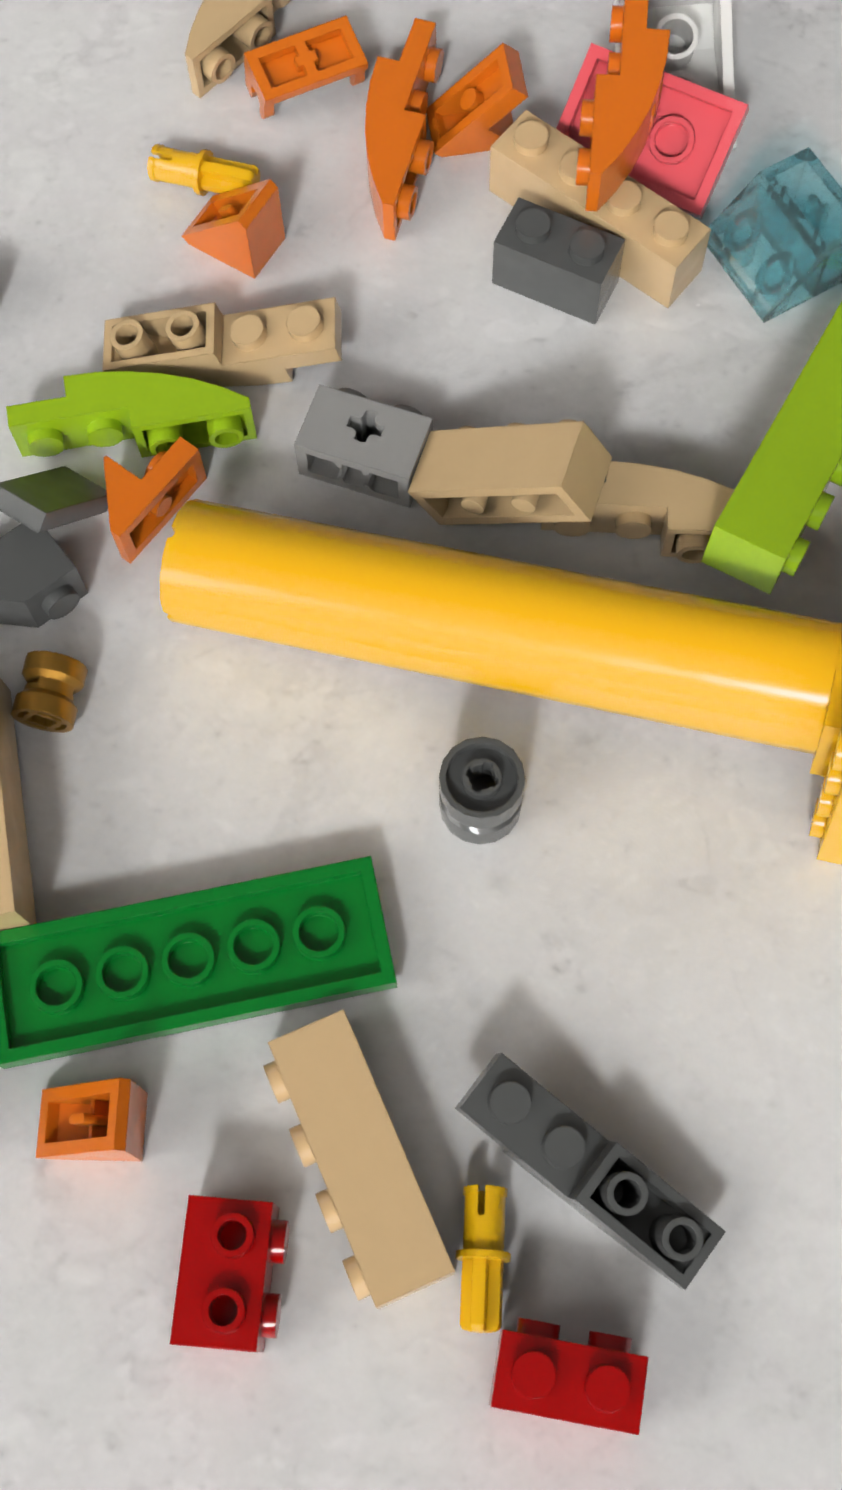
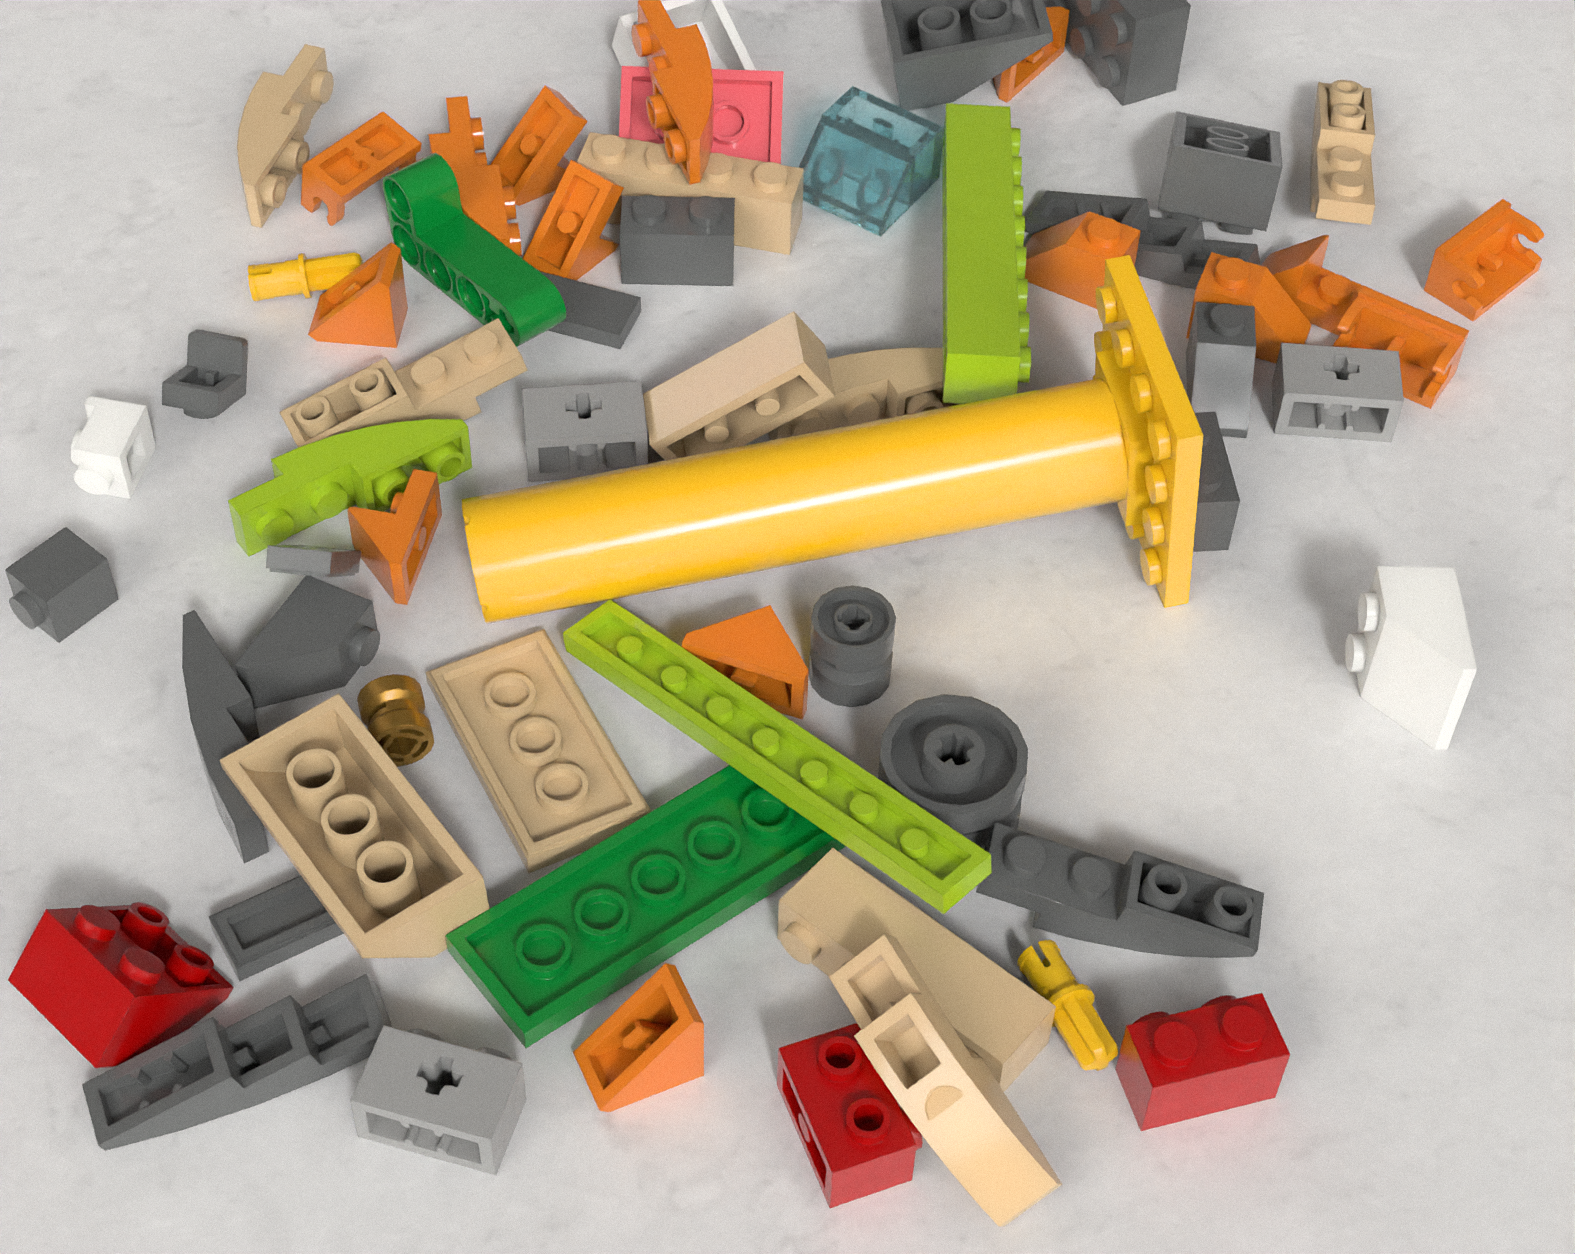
camera: 30 degrees left, 20 degrees down
(65, 260) = (212, 377): none -> dark grey bracket
(163, 767) = (537, 749): none -> tan tile
(305, 1312) = (940, 1084): none -> tan slope
(346, 896) = (780, 756): none -> lime plate
(350, 208) = (463, 256): none -> green beam
(385, 760) = (757, 657): none -> orange slope
(433, 300) = (596, 312): none -> dark grey tile
(468, 208) = (571, 230): none -> orange slope
(501, 938) = (957, 762): none -> dark grey wheel

